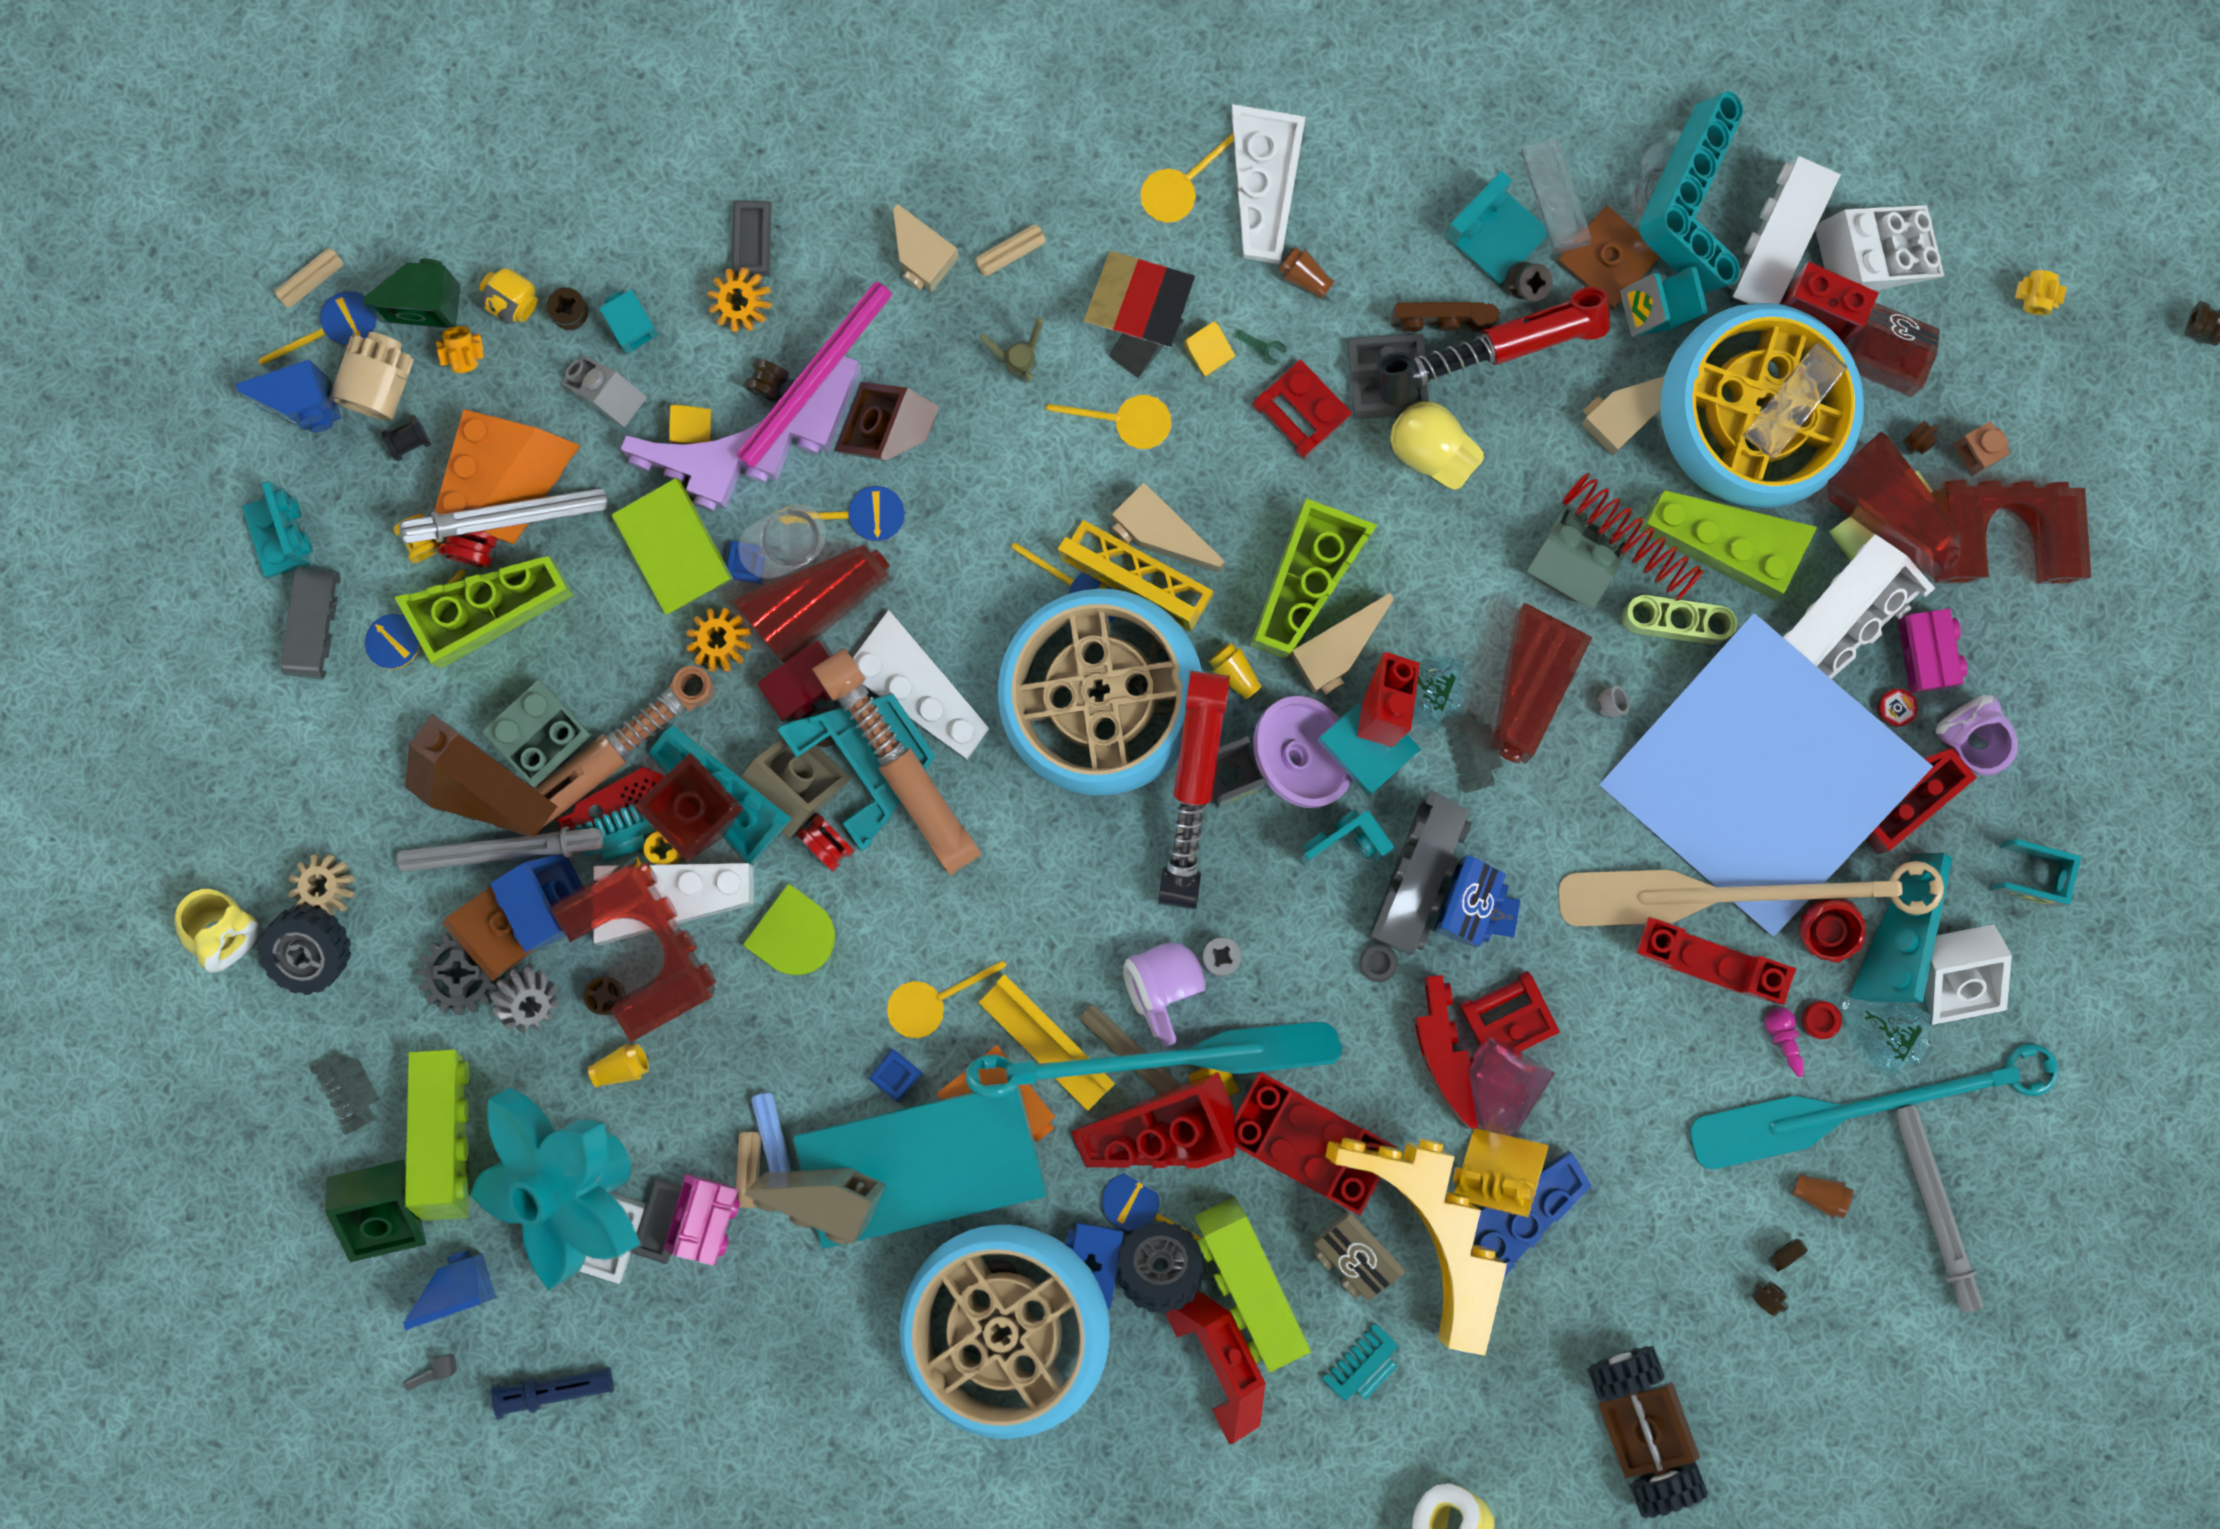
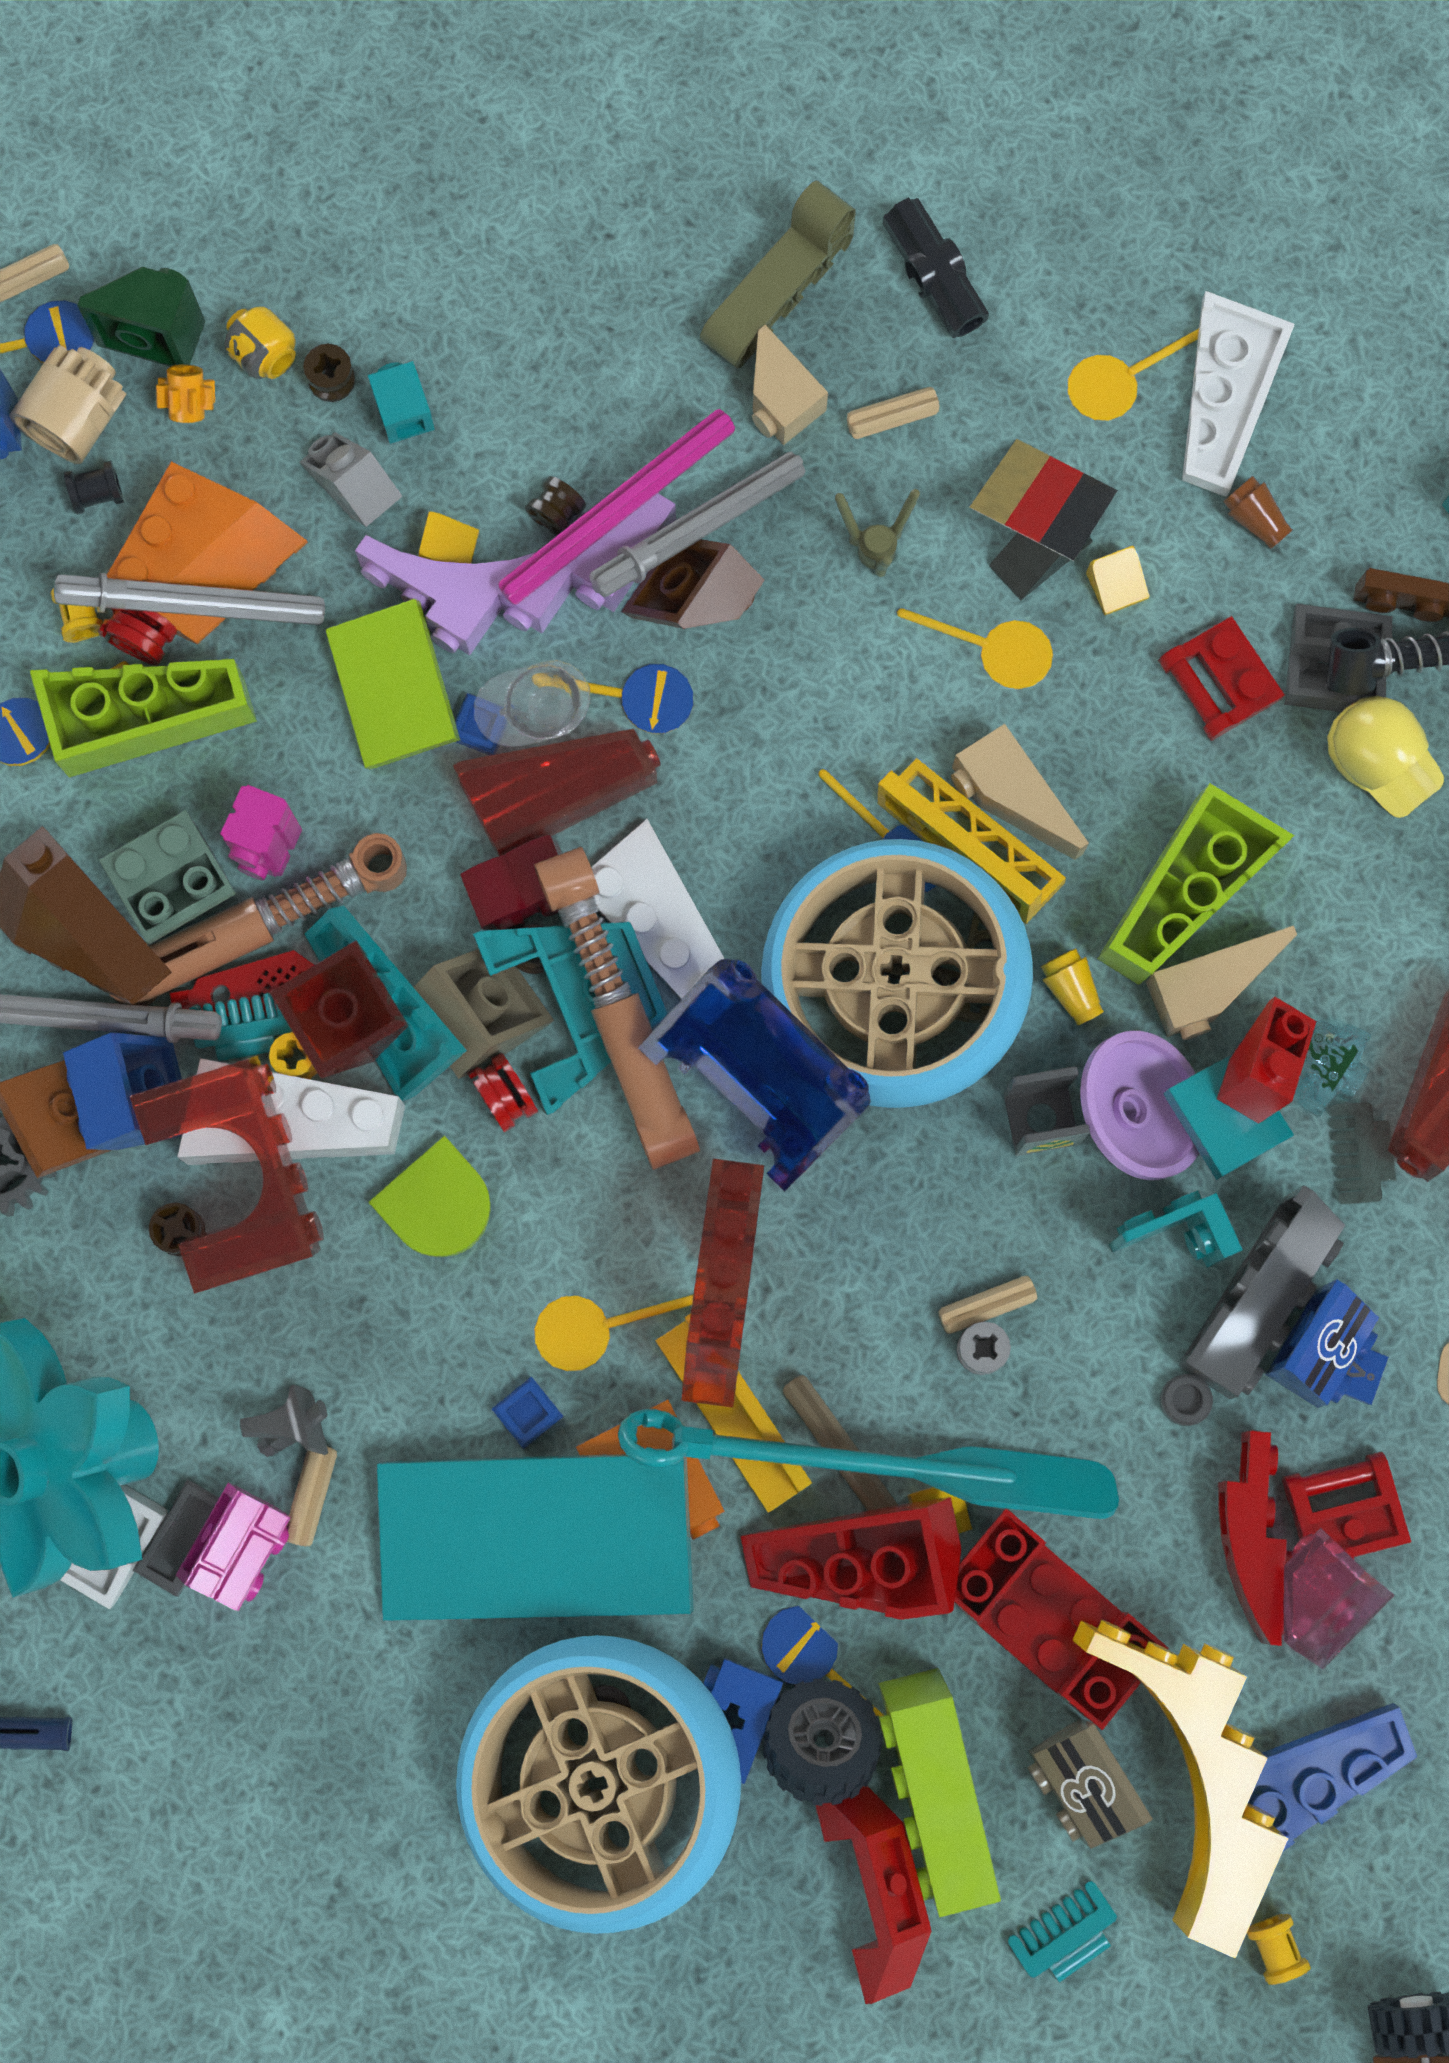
camera: 15 degrees right, 5 degrees down
(533, 1009) = (64, 1196): light grey gear -> none
(599, 685) = (260, 833): none -> dark pink brick
(620, 1066) = (177, 1324): yellow cone -> none
(705, 642) = (444, 809): light orange gear -> none
(724, 1119) = (293, 1422): none -> dark grey piece
(749, 291) = (528, 414): light orange gear -> none
(752, 237) = (575, 336): dark grey tile -> none
(771, 1132) = (351, 1475): light blue axle -> none
(827, 1199) = (404, 1556): dark tan slope -> none
(871, 381) = (634, 562): none -> light grey axle
(899, 165) = (773, 288): none -> olive beam
(1016, 784) = (763, 1065): none -> clear blue windscreen
(1018, 952) = (722, 1283): none -> clear red arch
(1020, 126) = (935, 267): none -> black piece
(1160, 978) = (895, 1359): lavender piece -> none
(1194, 785) = (995, 1113): red piece -> none
(1218, 923) = (987, 1304): none -> tan axle
(1261, 346) = (1185, 593): clear green hand -> none
(1501, 1172) = (1300, 1712): yellow hinge -> none
(1517, 1342) = (1278, 1949): none -> yellow bush

